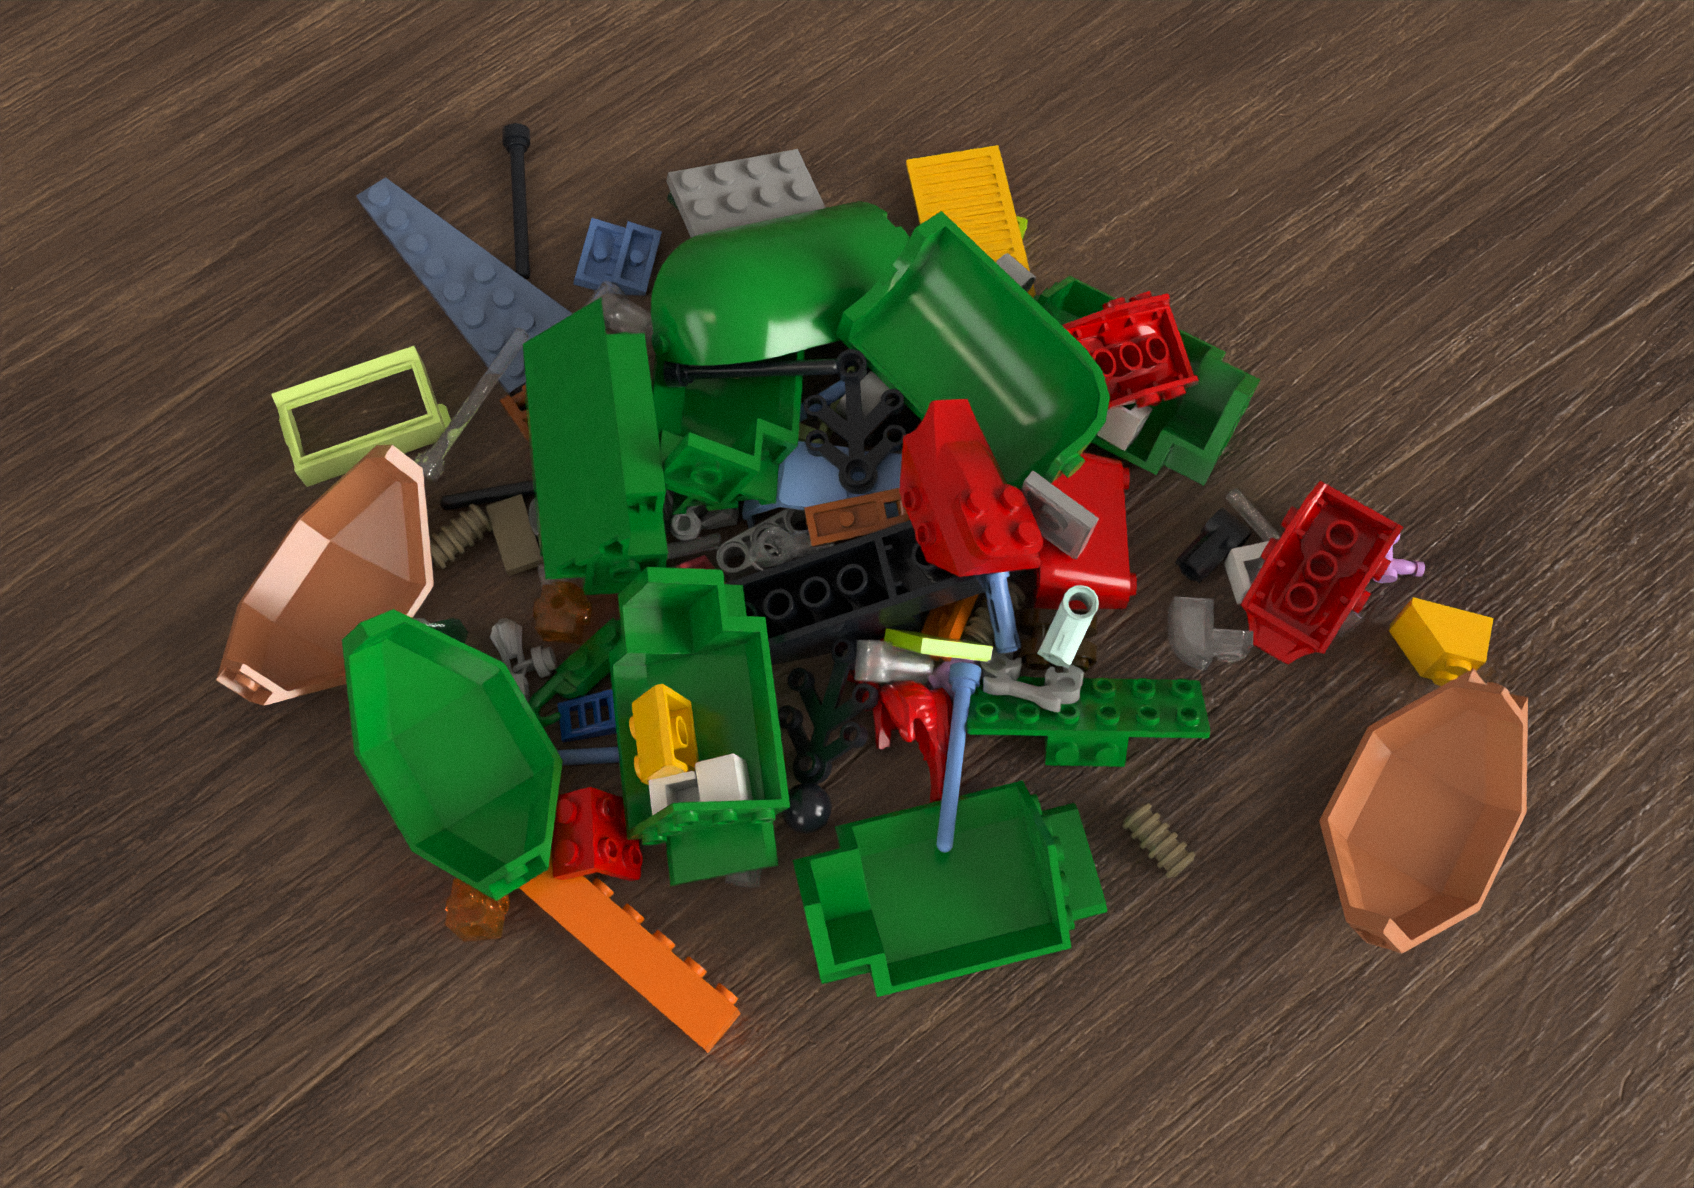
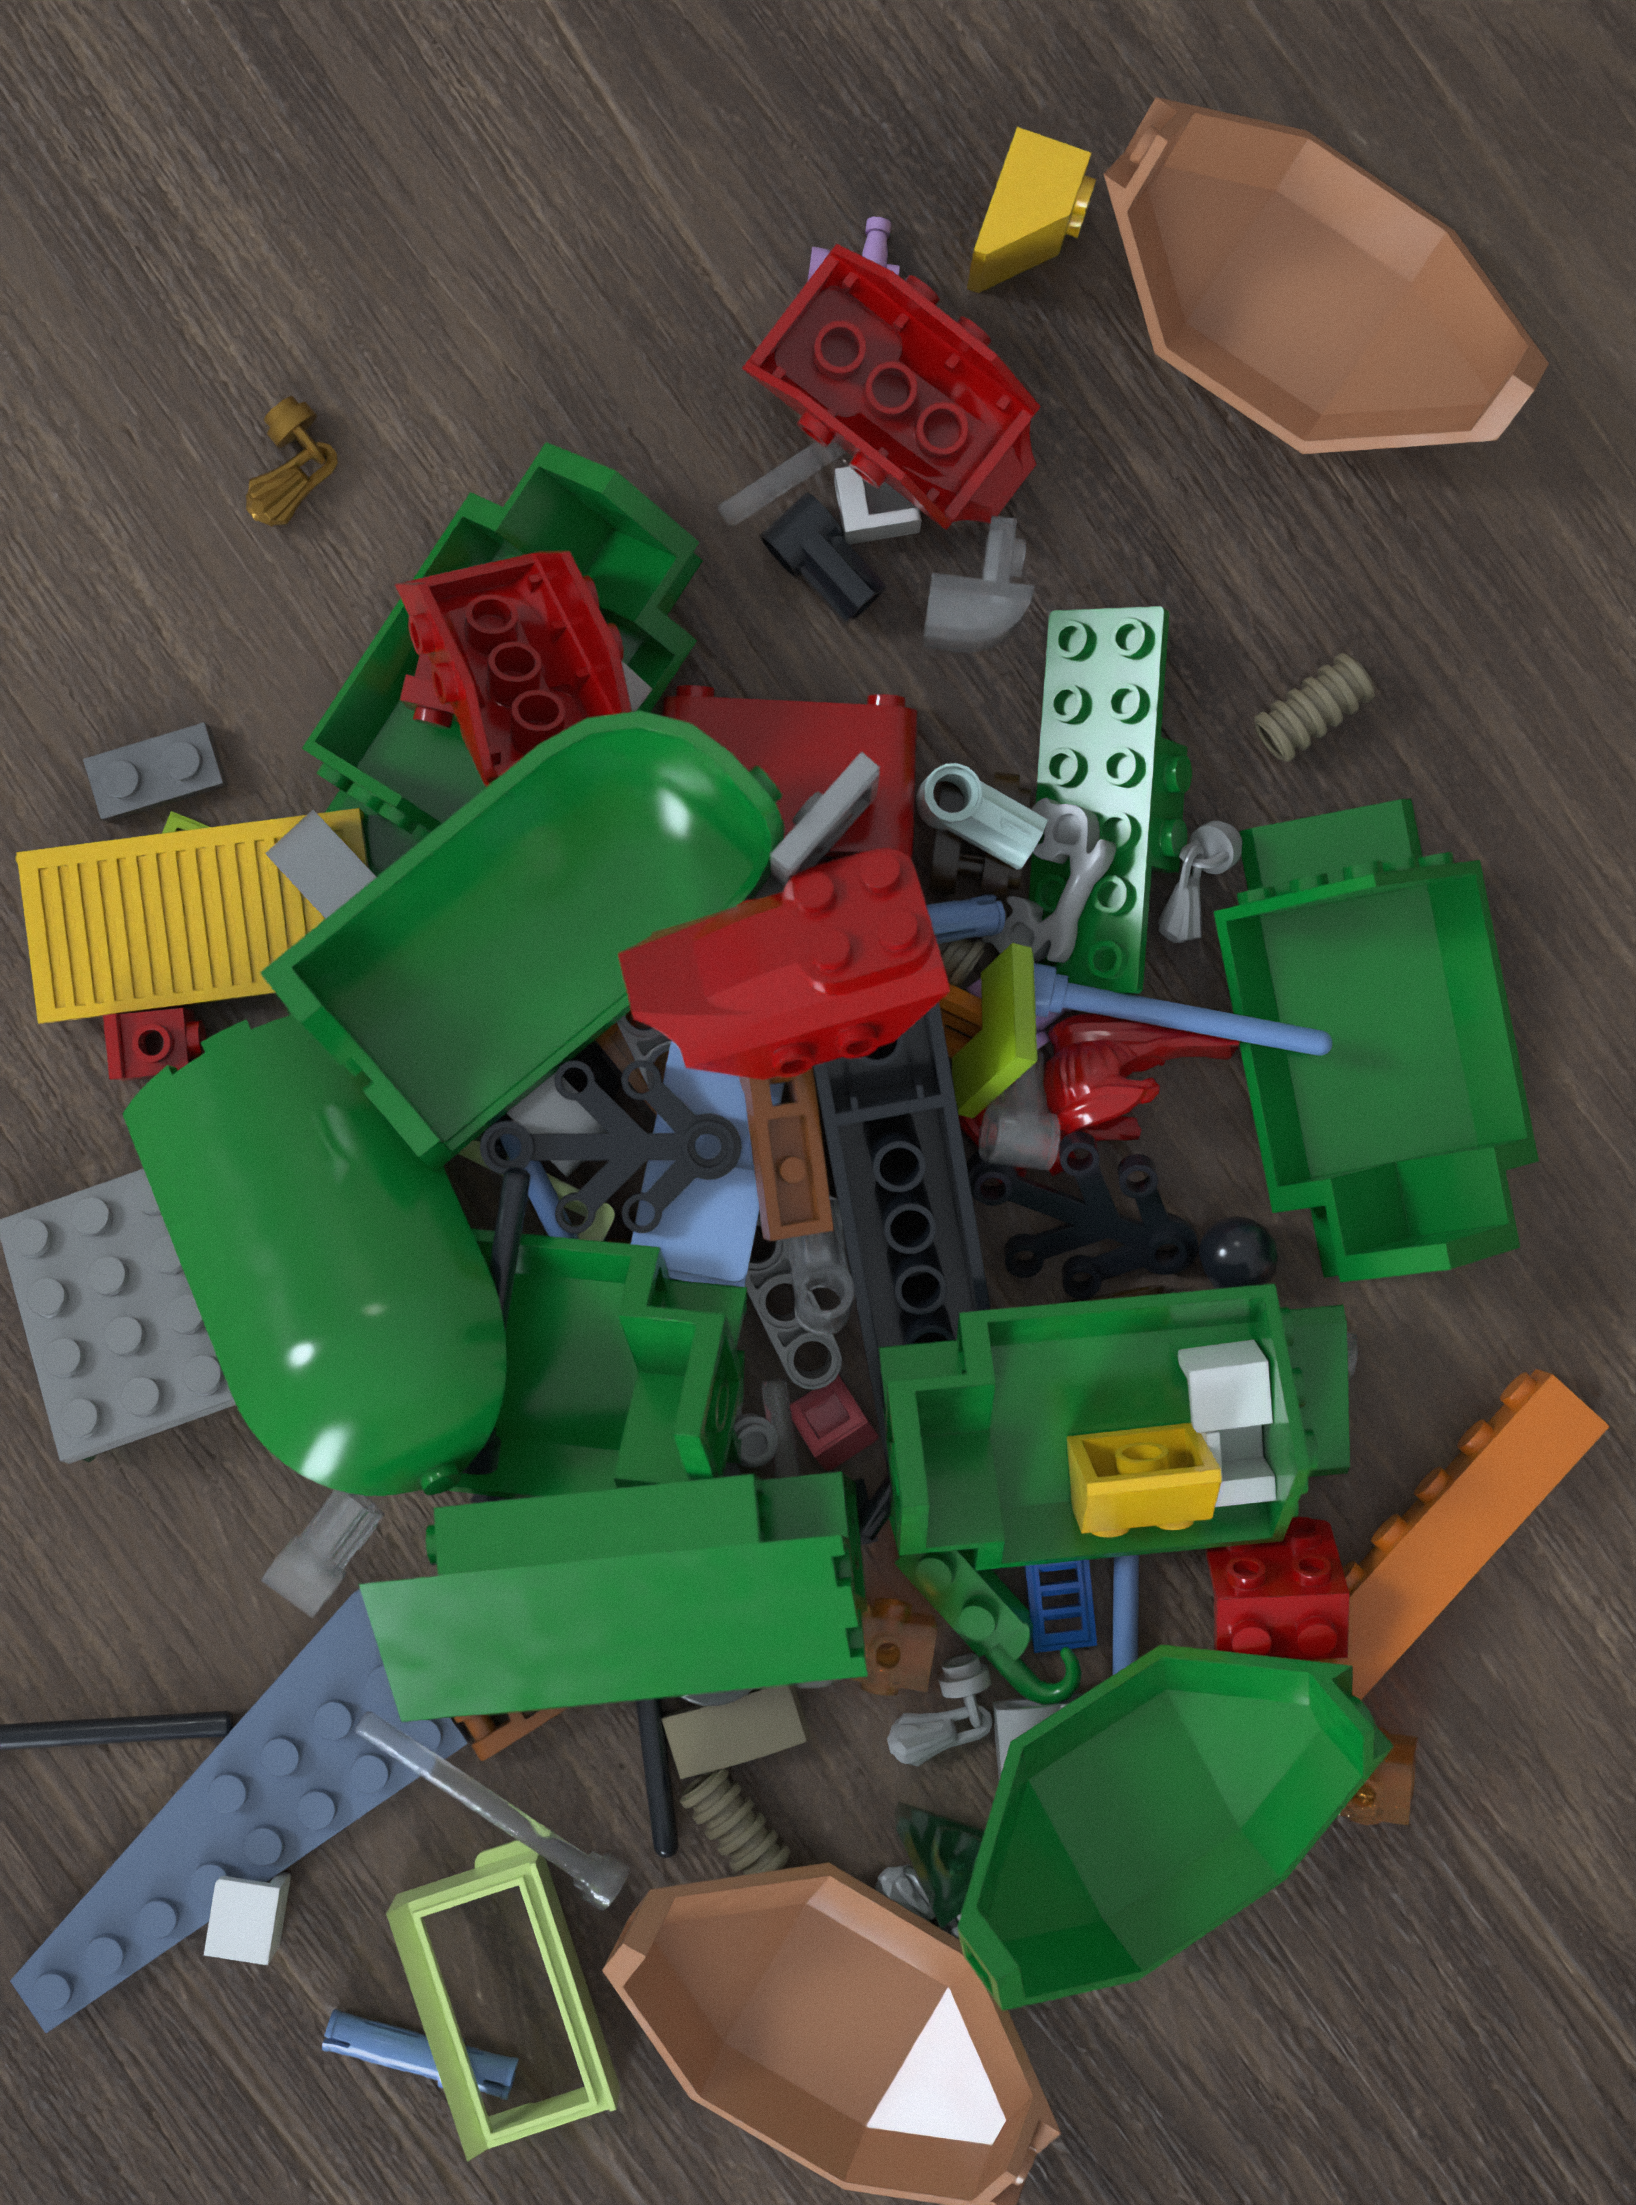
camera: 90 degrees left, 20 degrees up
(339, 359) = (411, 2052): none -> medium blue pin
(414, 286) = (247, 1918): none -> white panel
(618, 256) = (202, 1552): medium blue slope -> none
(900, 207) = (128, 1048): none -> red brick
(1049, 212) = (155, 772): none -> flat silver plate
(1062, 781) = (1211, 849): none -> light grey piece
(1212, 261) = (279, 492): none -> pearl gold piece

